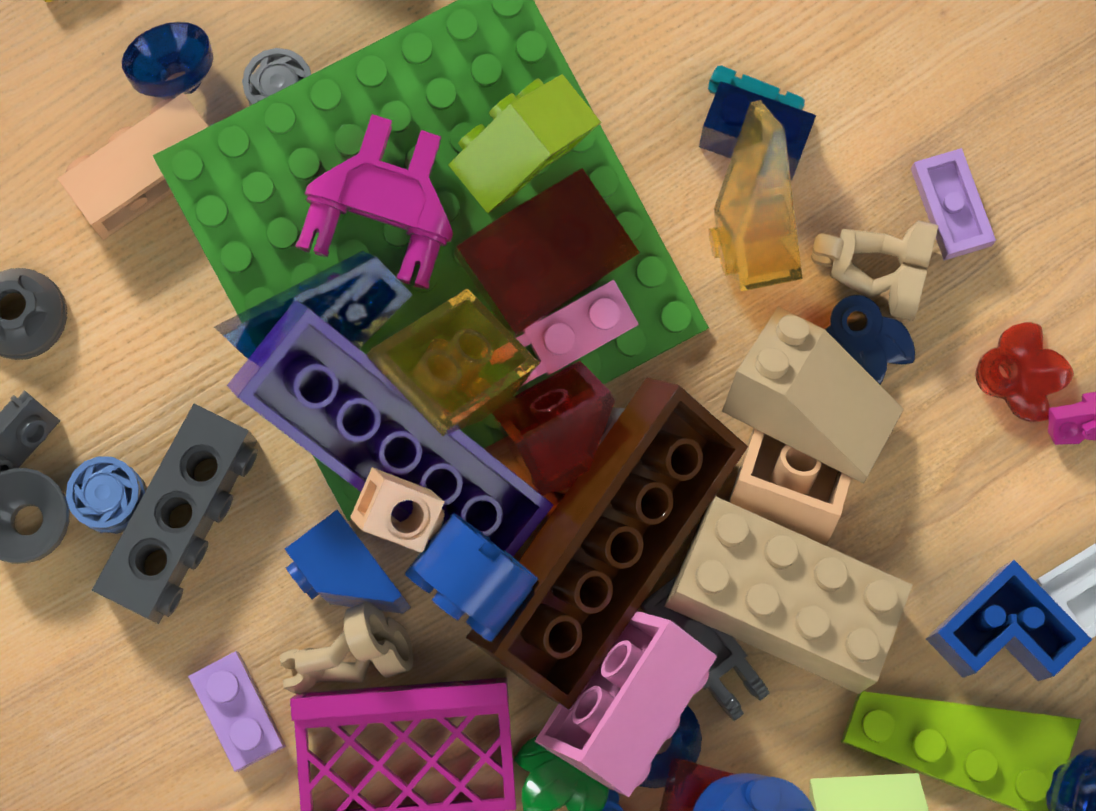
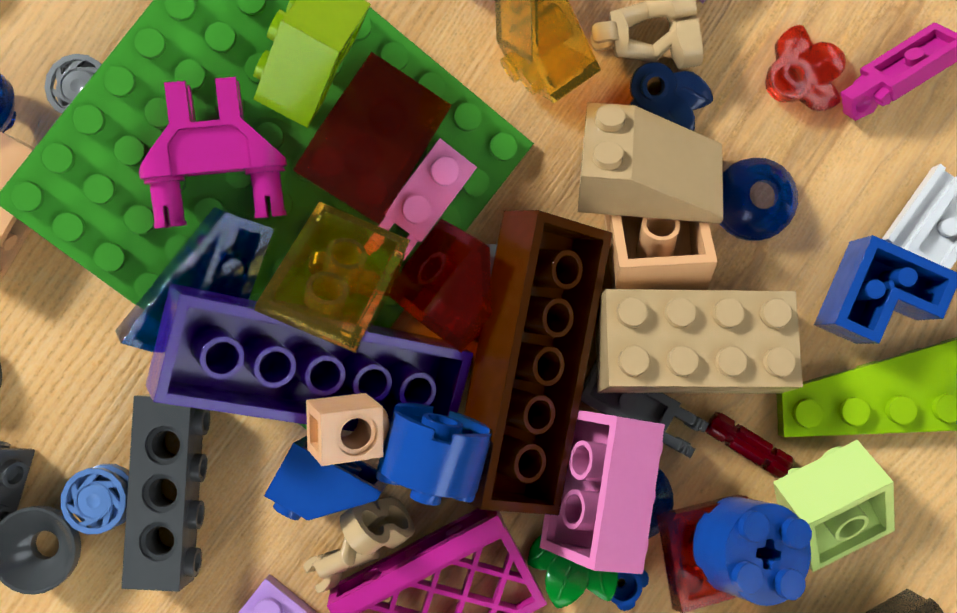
camera: 20 degrees left, 10 degrees up
(802, 733) = (749, 445): none -> dark red axle
(902, 502) = (745, 219): none -> clear blue piece

